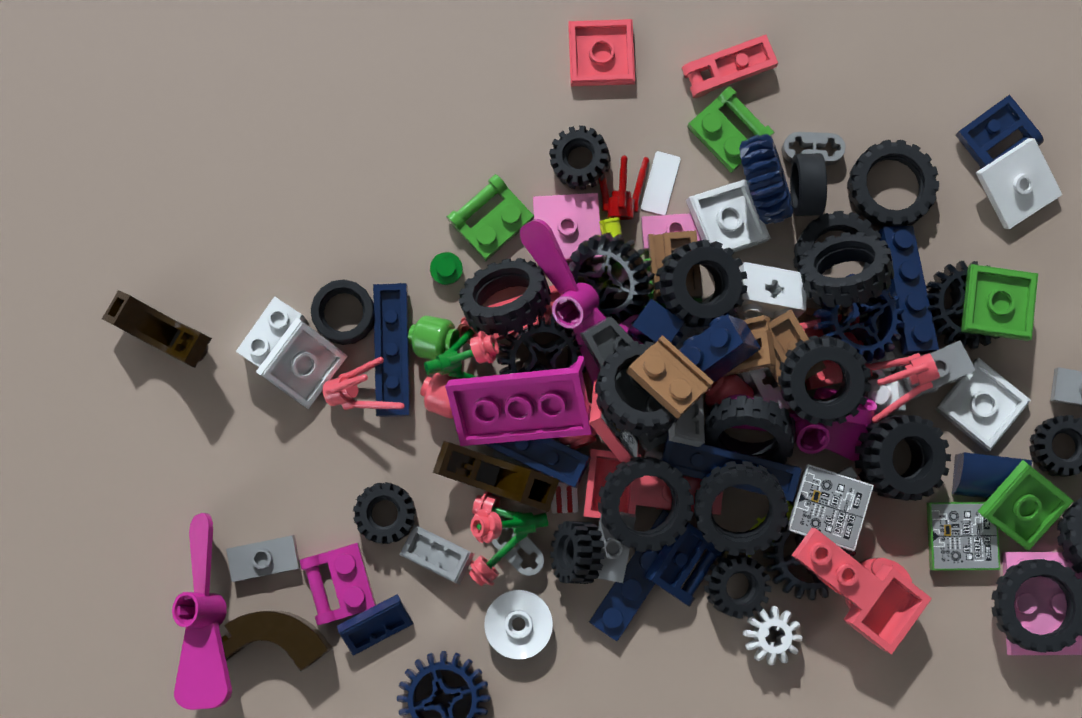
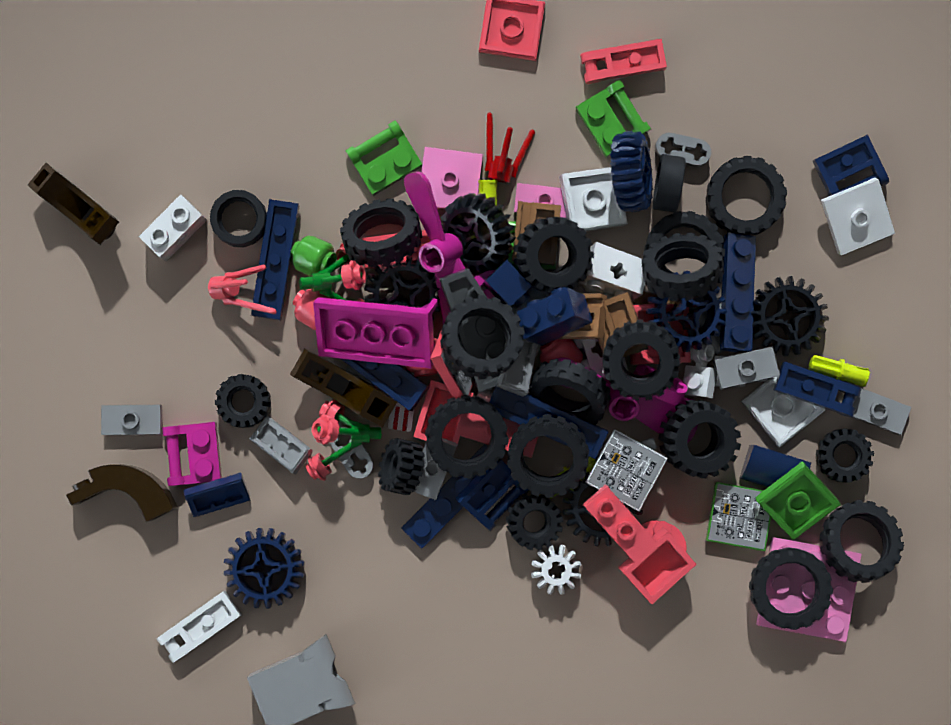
camera: 15 degrees right, 5 degrees up
(202, 668) = (64, 500): dark pink piece -> none
(302, 363) = (194, 257): white tile -> none
(446, 268) = (336, 196): green plate -> none
(516, 643) = (324, 522): white dish -> none
(572, 140) = (473, 102): black tyre -> none
(660, 183) = (541, 155): white sticker -> none
(670, 377) = (506, 332): medium nougat plate -> none
(918, 370) = (729, 367): coral plant -> none
(999, 302) = (813, 320): bright green tile -> none
(1018, 378) = (816, 389): none -> dark blue plate
(1036, 353) = (839, 370): none -> neon yellow axle

